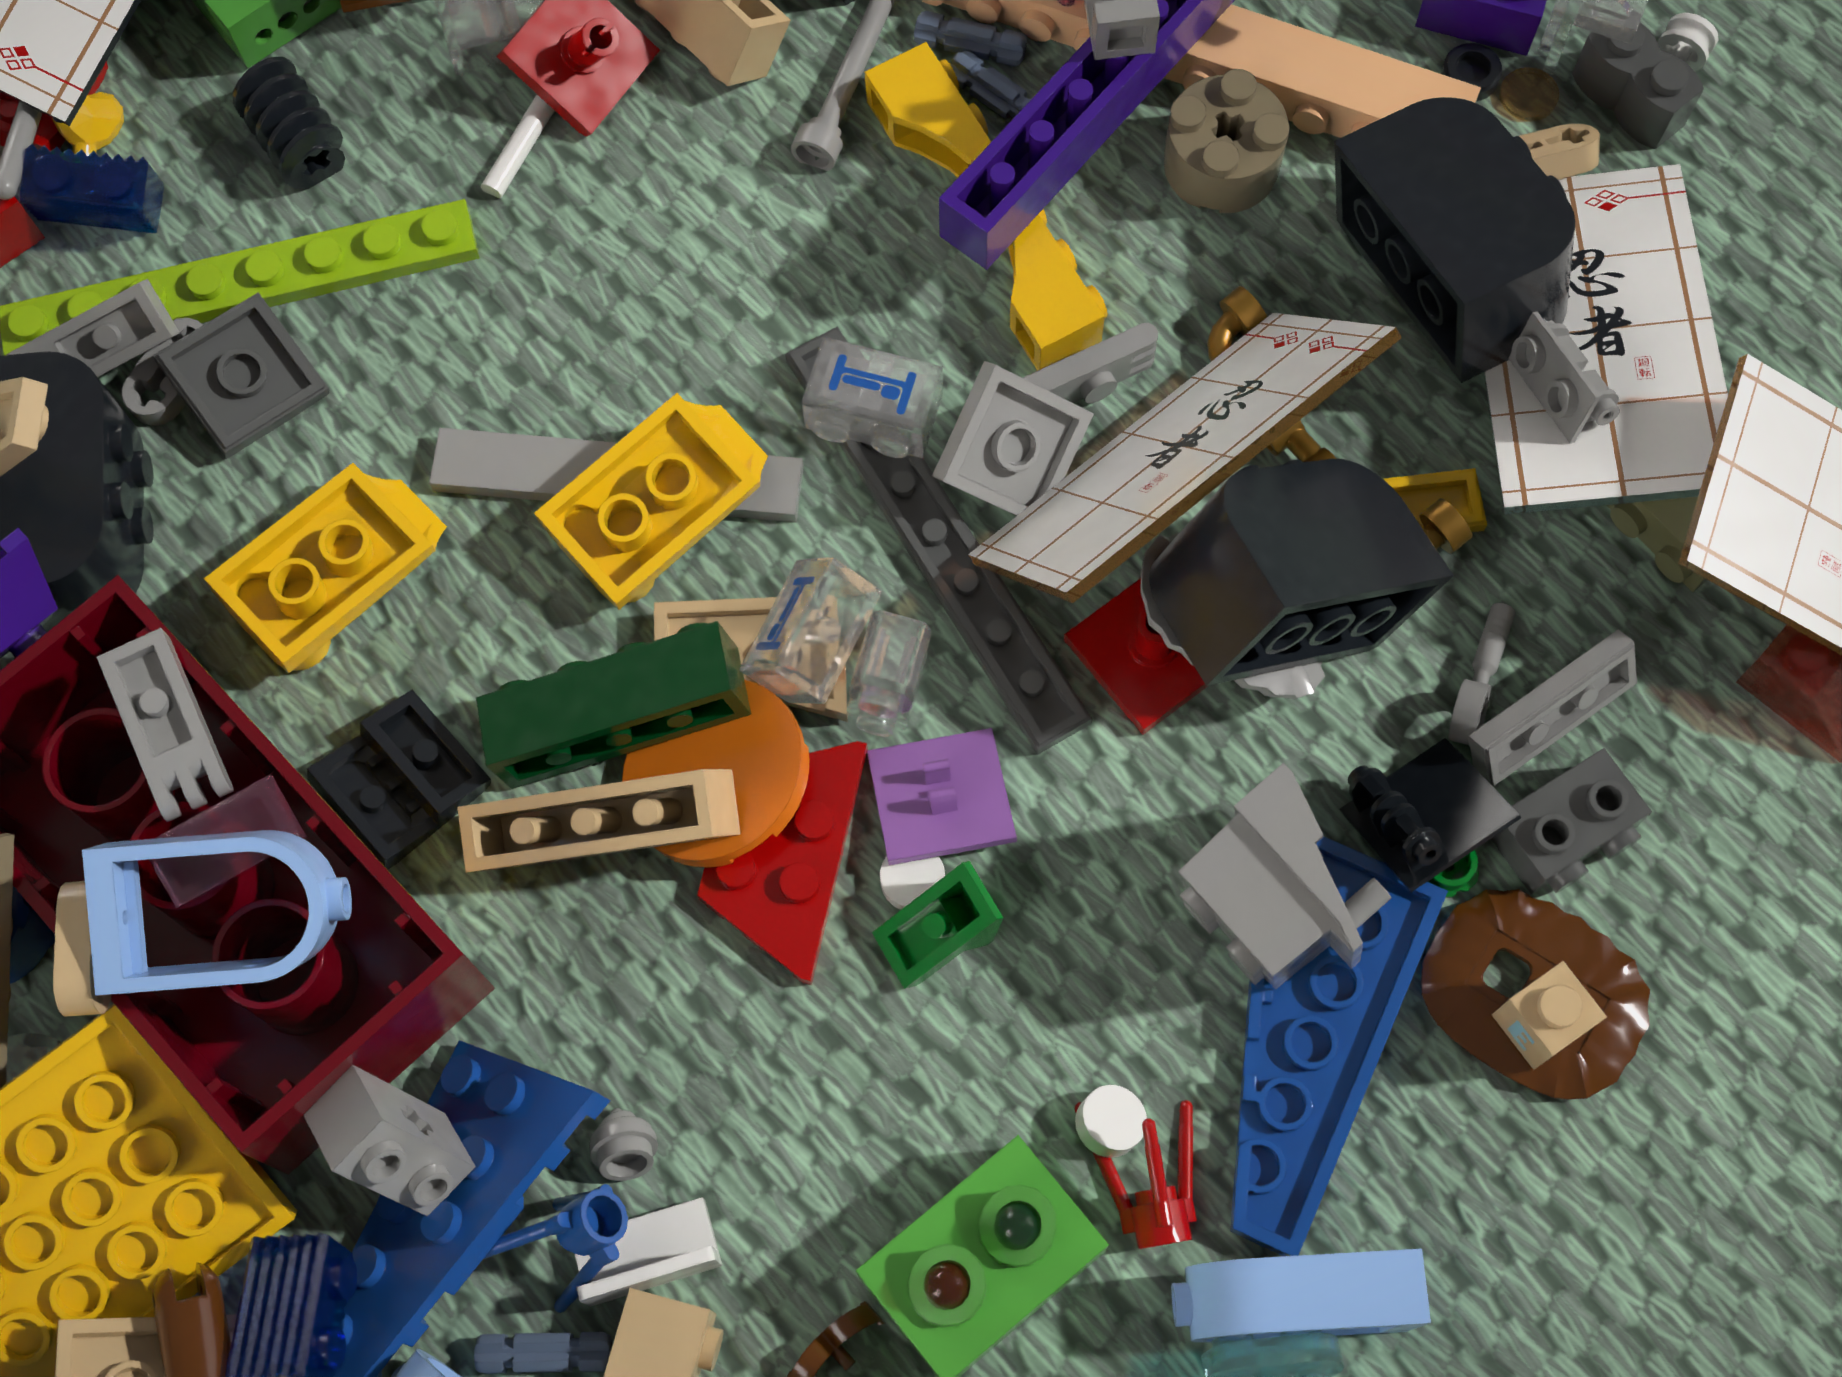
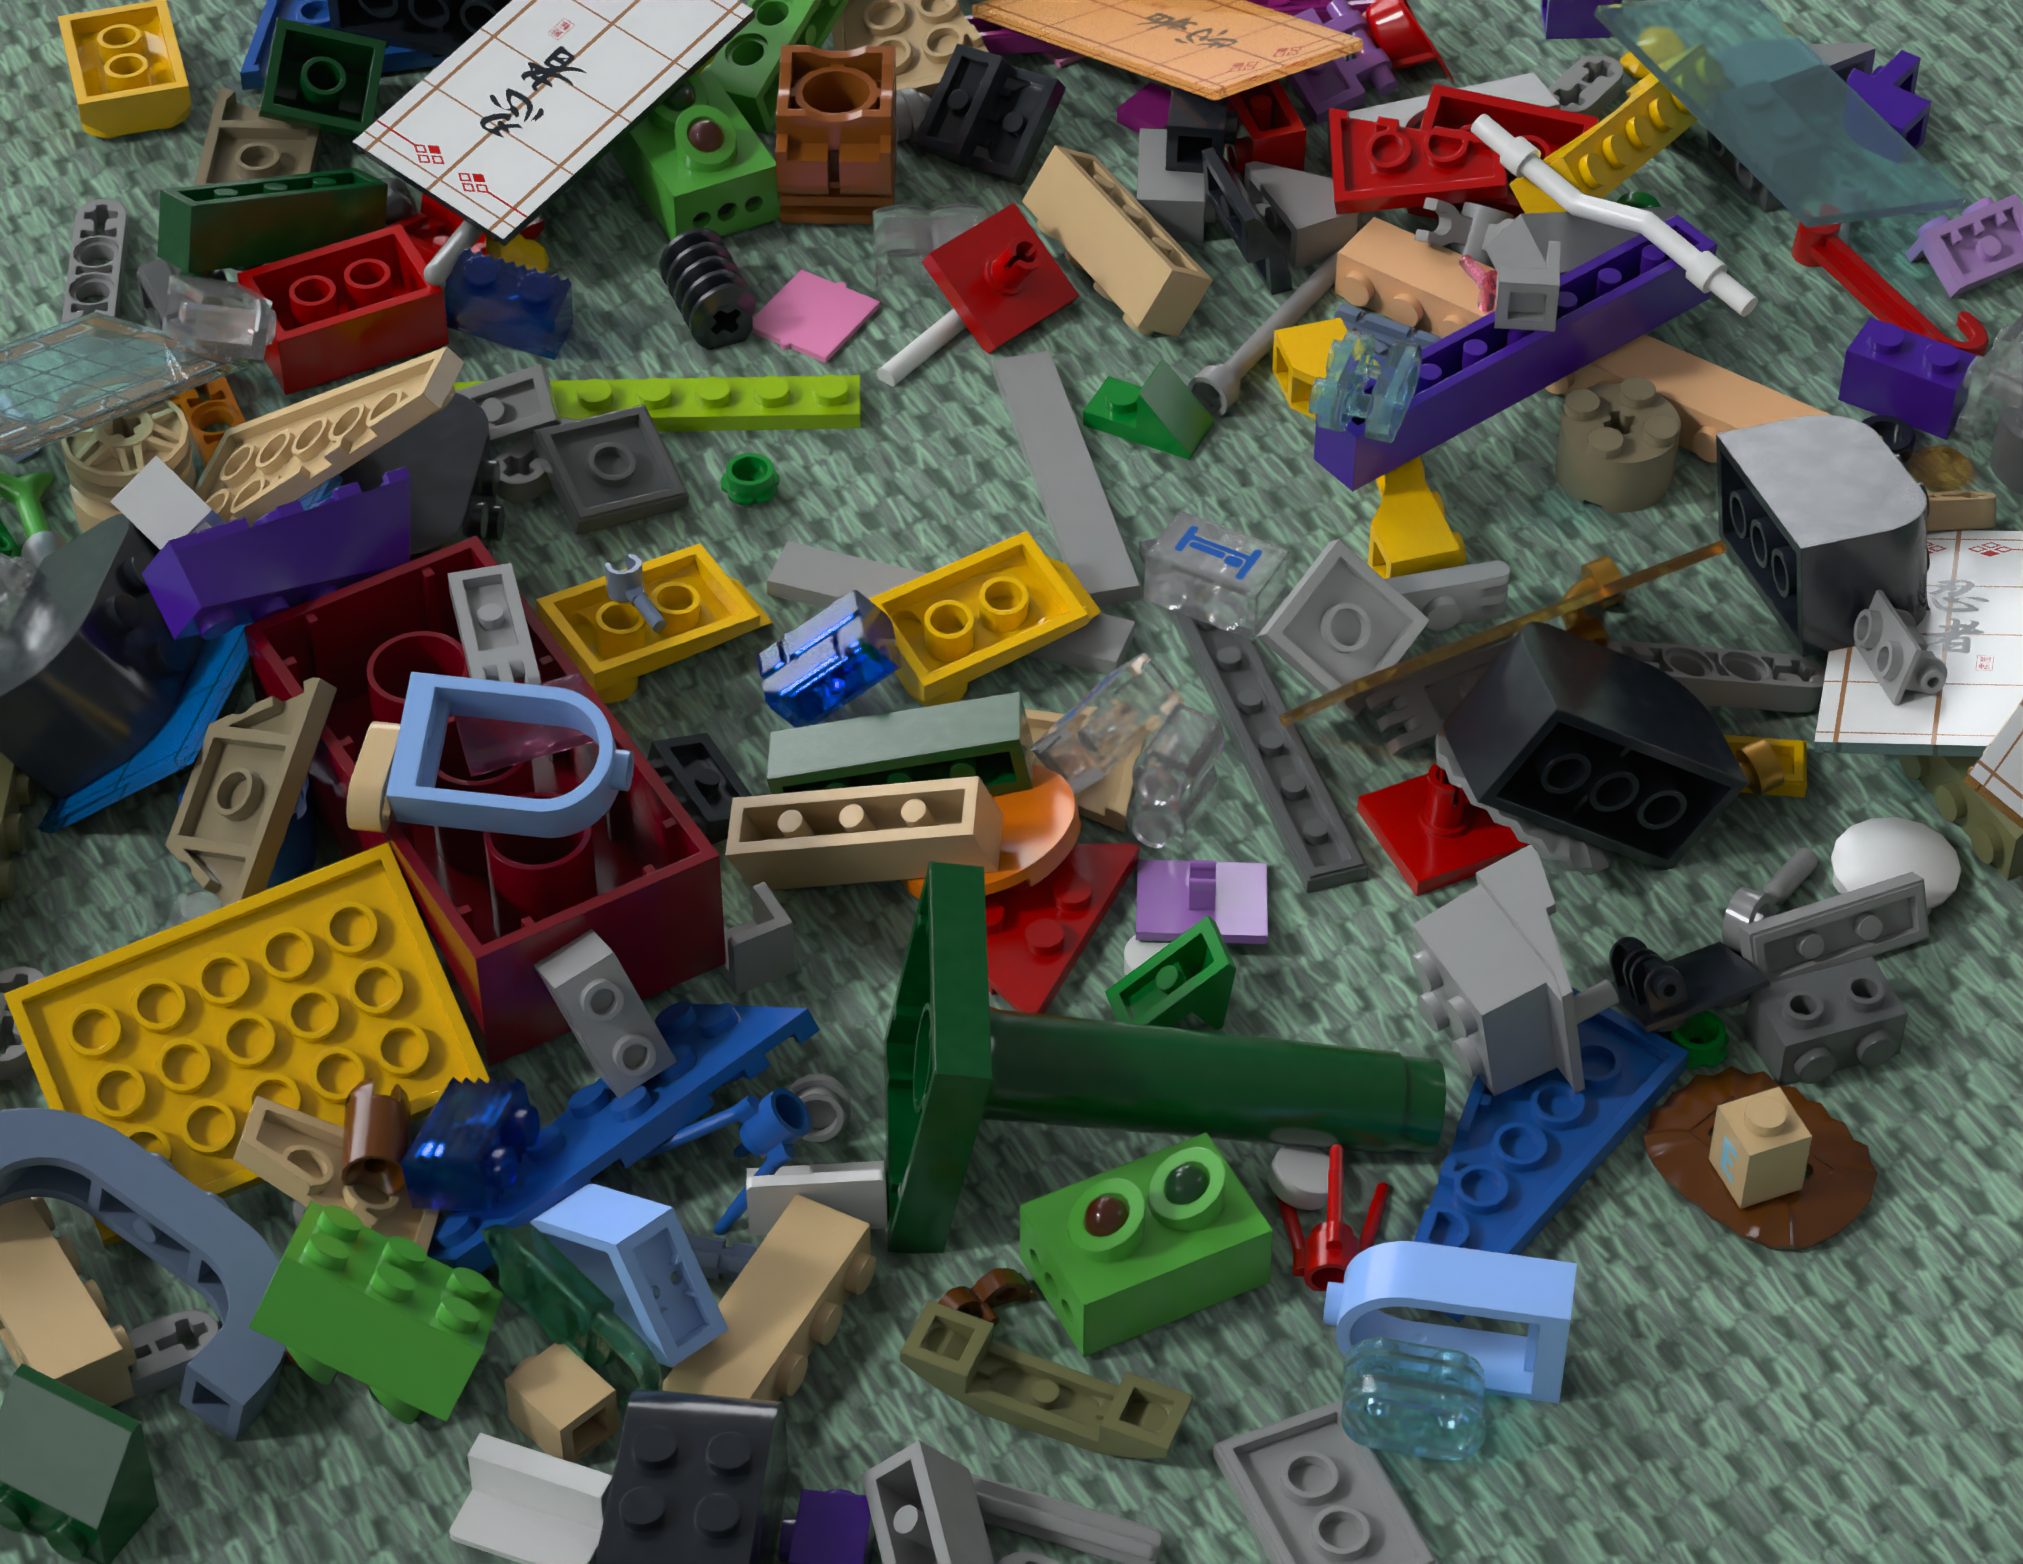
camera: 10 degrees right, 25 degrees down
(297, 548) = (629, 587): none -> sand blue hand
(379, 343) = (750, 479): none -> green plate
(402, 125) = (813, 316): none -> bright pink piece
(514, 592) = (829, 660): none -> clear blue brick
(515, 957) = (761, 947): none -> light grey panel
(695, 285) = (1065, 477): none -> light grey tile
(763, 189) = (1155, 415): none -> green slope
(773, 1123) = (968, 1062): none -> dark green piece
(966, 150) = (1348, 372): none -> clear light blue brick
(1381, 427) = (1735, 676): none -> light grey beam
(1586, 596) = (1893, 847): none -> white dish

